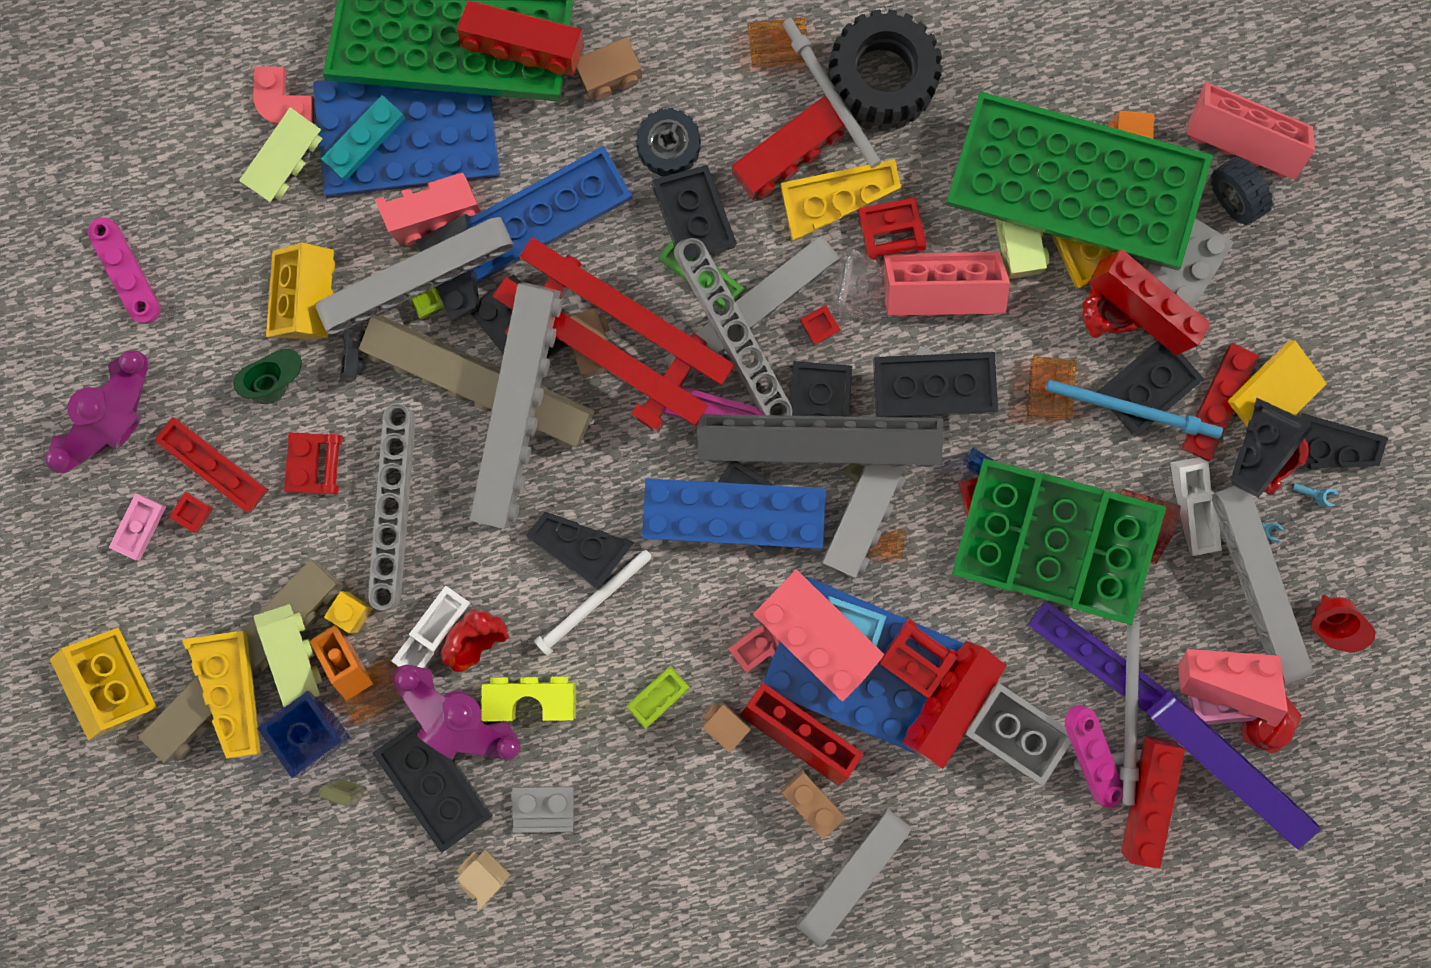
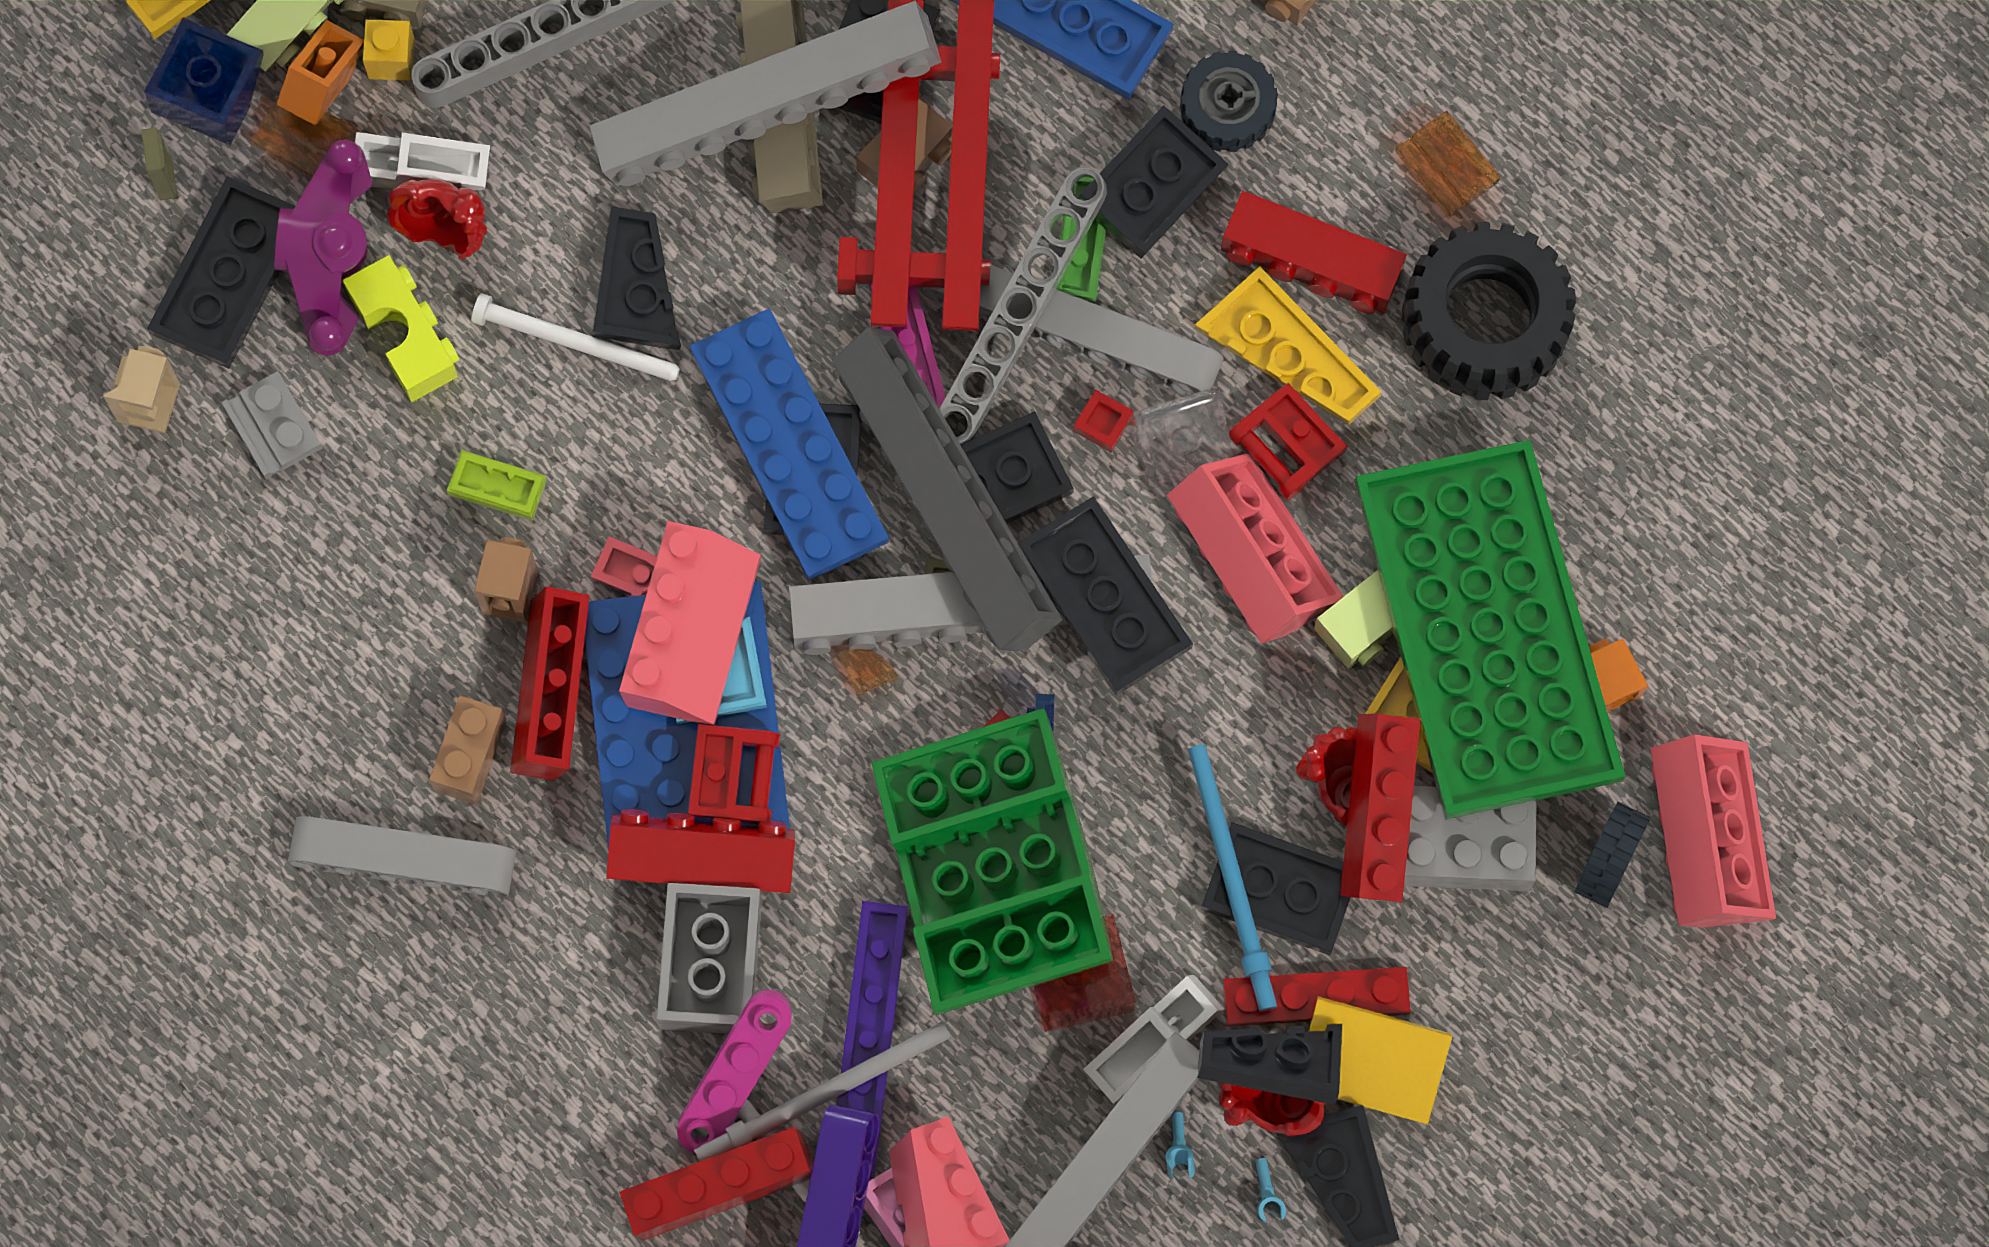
camera: 60 degrees right, 10 degrees down
(802, 47) = (1453, 194): light grey bar -> none
(1045, 403) = (1174, 767): clear orange plate -> none

